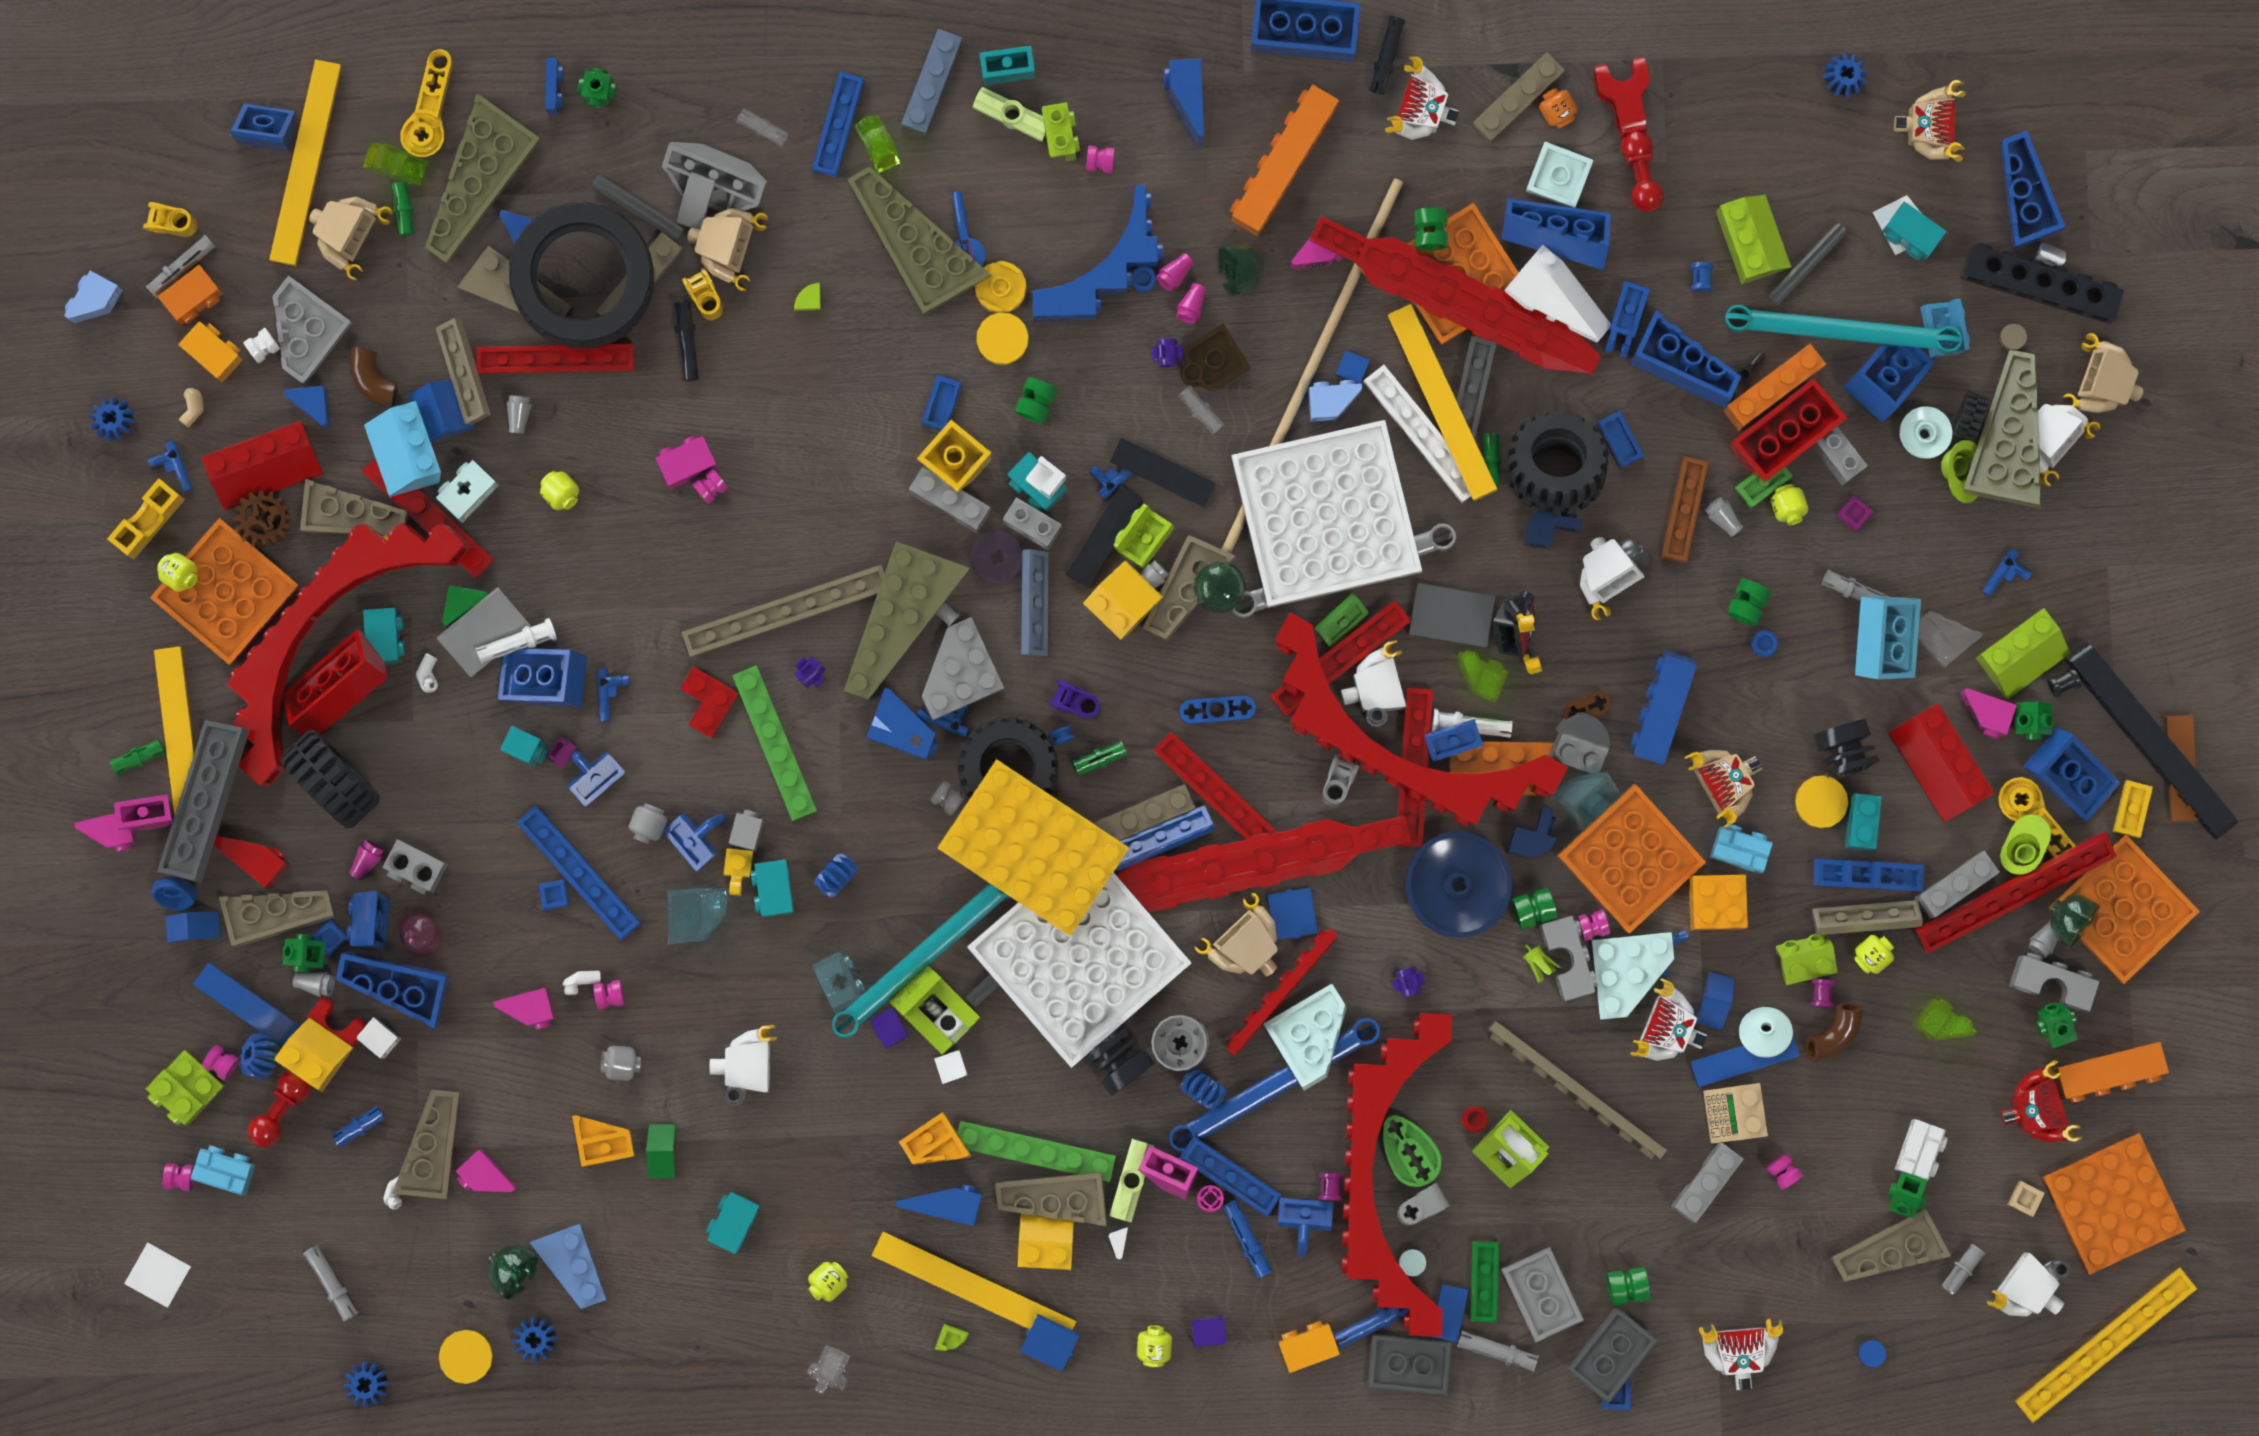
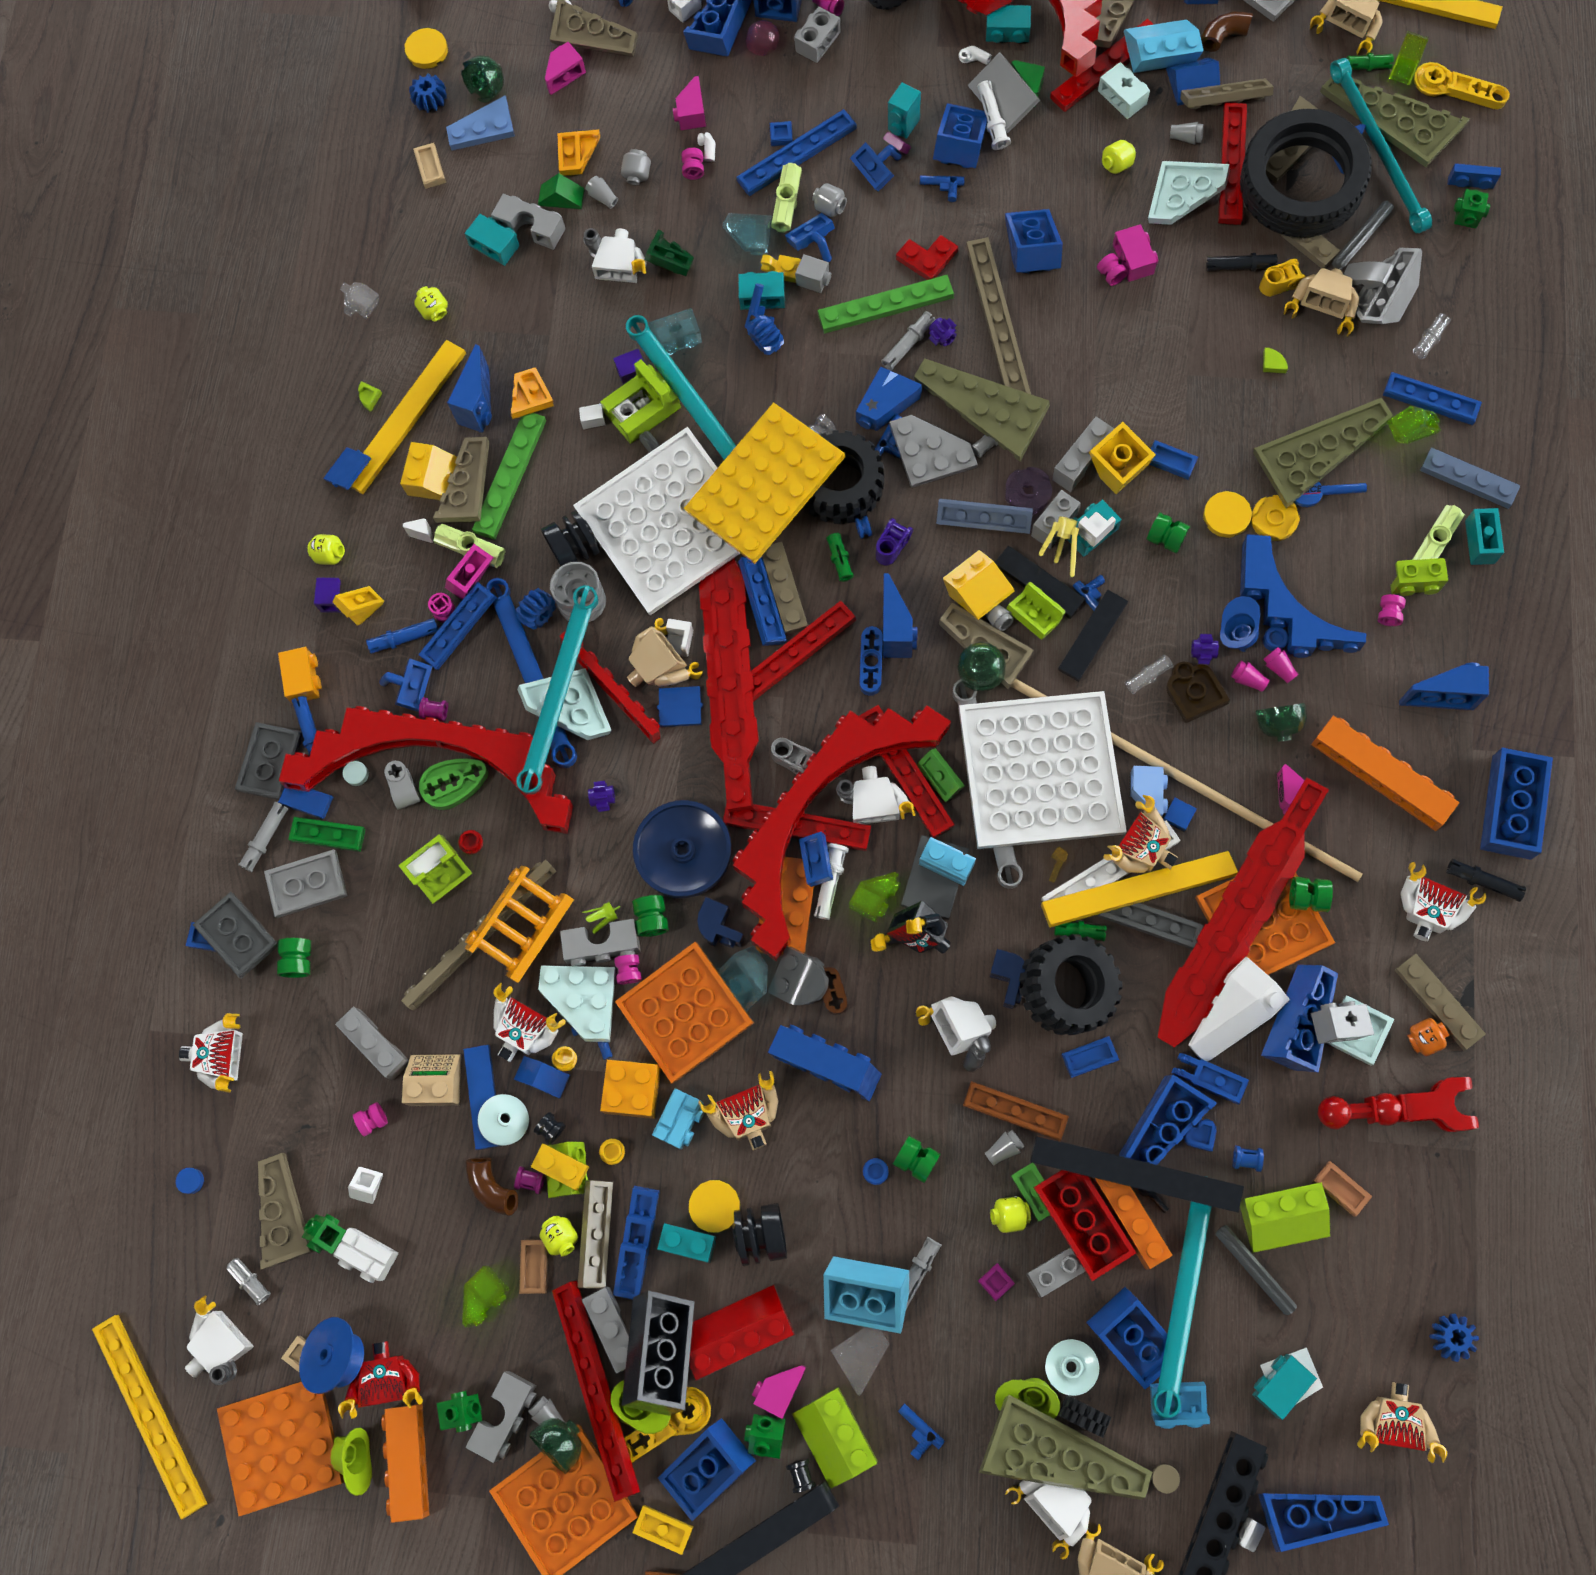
camera: 110 degrees right, 10 degrees down
(598, 411) = (1184, 188): none -> light aqua plate
(611, 146) = (1419, 218): none -> teal piece
(629, 875) = (784, 207): none -> yellowish green piece
(633, 1321) = (429, 165): none -> tan tile
(656, 1100) = (599, 190): none -> light grey cone
(678, 580) = (1033, 241): none -> blue slope
(694, 1203) = (514, 213): none -> light grey arch
(736, 1006) = (668, 255): none -> dark green wing
(804, 890) = (756, 309): none -> blue hose
(816, 707) = (914, 334): none -> light grey pin
(1055, 511) = (1065, 528): none -> light yellow plant
(1136, 317) = (1240, 623): none -> blue piece
(1182, 683) = (898, 628): none -> blue slope
(1215, 924) = (680, 635): none -> white panel
(1215, 1294) = (358, 604): none -> yellow slope
(1303, 1041) = (557, 689): none -> teal piece
(1397, 401) = (1144, 842): none -> torso
(1414, 486) = (1060, 856): none -> clear yellow hand
(1439, 602) = (947, 861): none -> medium azure brick
(1562, 192) = (1342, 1022): none -> brick
(1572, 1025) = (531, 945): none -> light orange fence
(1686, 321) = (1202, 1135): none -> blue tile
(1695, 978) = (564, 1058): none -> yellow plate
(1717, 185) = (1342, 1189): none -> nougat tile
(1739, 383) = (1137, 1174): none -> black tile
(1768, 981) = (549, 1128): none -> black wheel
(1781, 914) = (612, 1151): none -> yellow plate
(1808, 960) = (560, 1166): none -> yellow plate
(1849, 1166) = (365, 1185): none -> white slope
(1906, 977) = (533, 1267): none -> medium nougat tile
(1975, 831) = (658, 1353): none -> black brick
(2025, 1163) = (330, 1356): none -> blue piece
(2117, 1125) = (353, 1460): none -> lime piece

